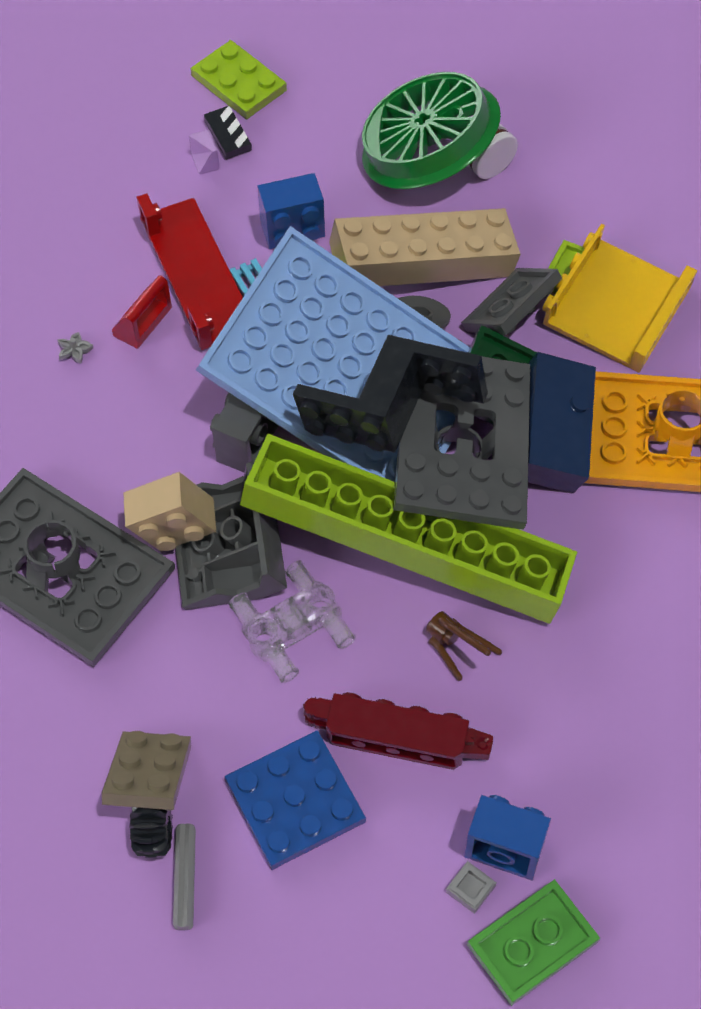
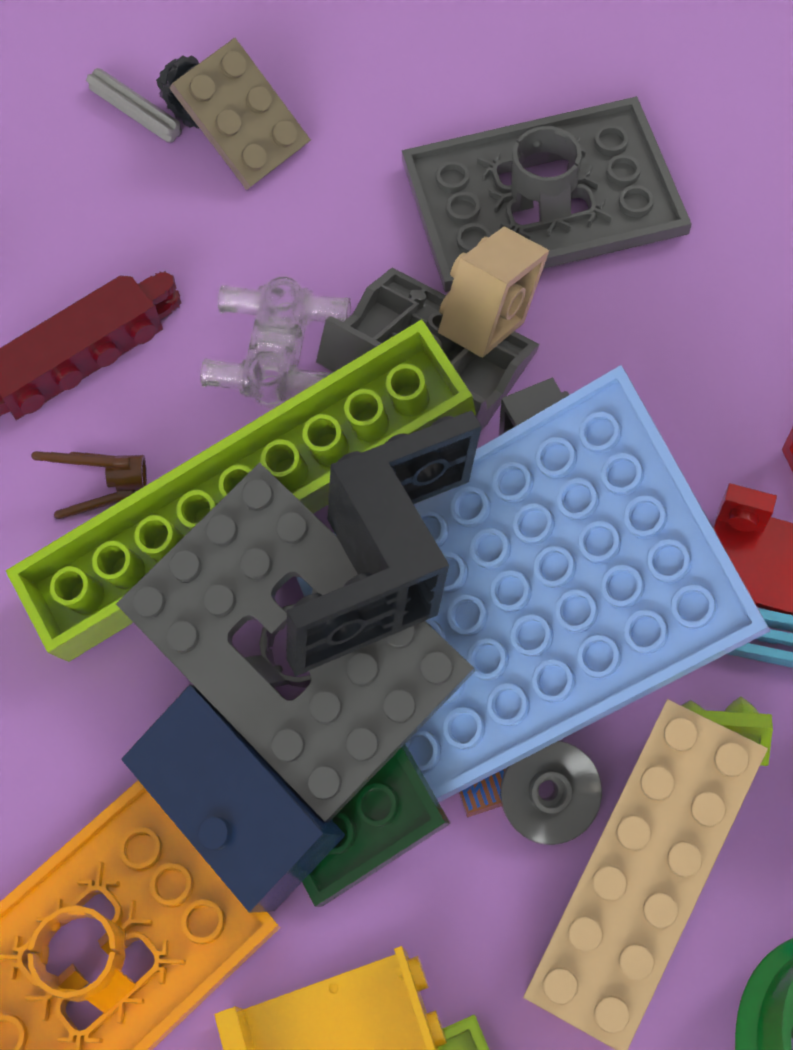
camera: 135 degrees right, 5 degrees up
(295, 799) = (108, 227): blue plate -> none
(513, 300) = (463, 925): dark grey plate -> none

